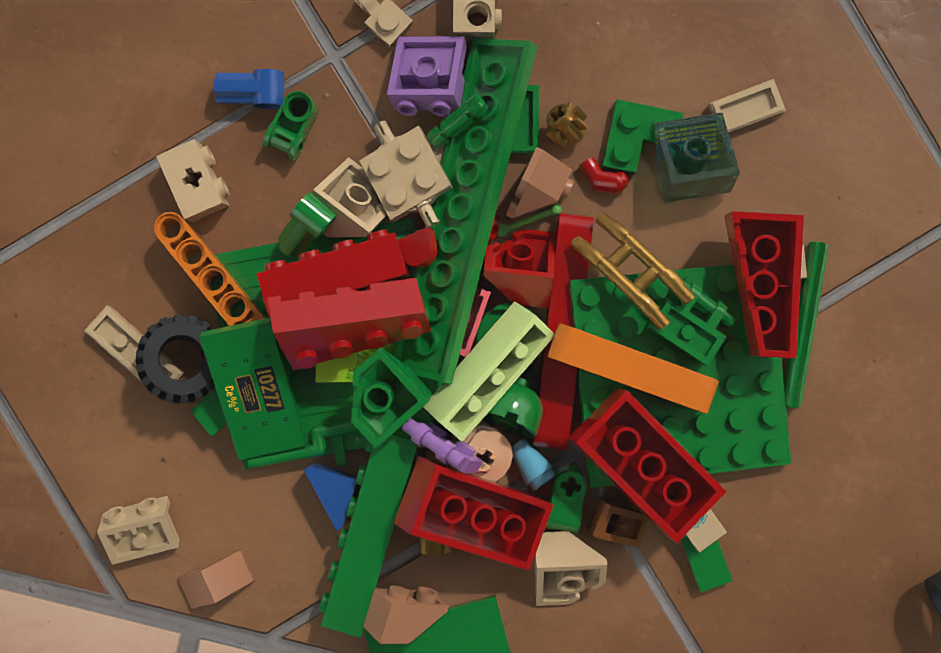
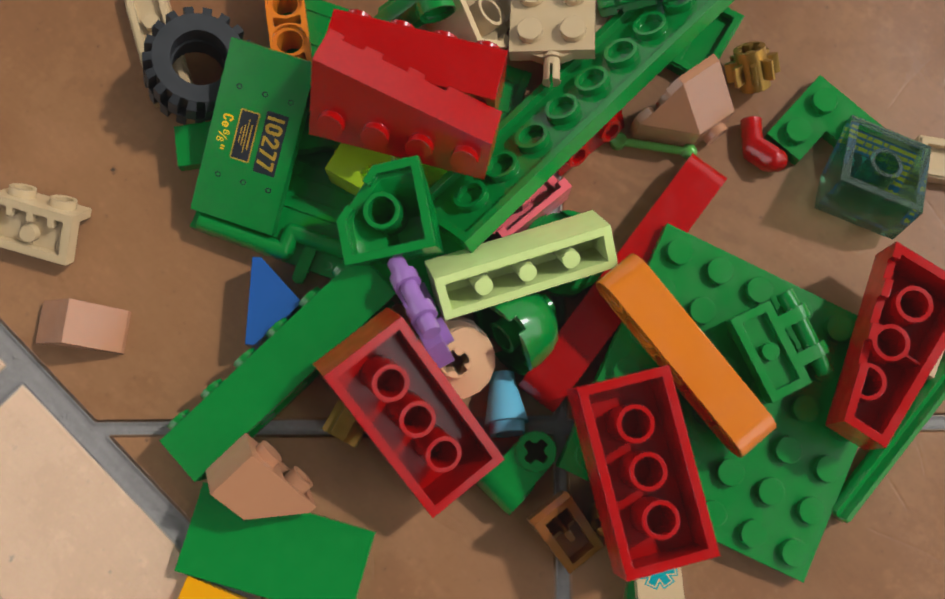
camera: 25 degrees right, 10 degrees down
(419, 248) = (522, 98): red tile -> none
(523, 267) = (620, 185): red slope -> none
(565, 569) = (474, 547): tan slope -> none
(635, 289) = (738, 267): pearl gold piece -> none

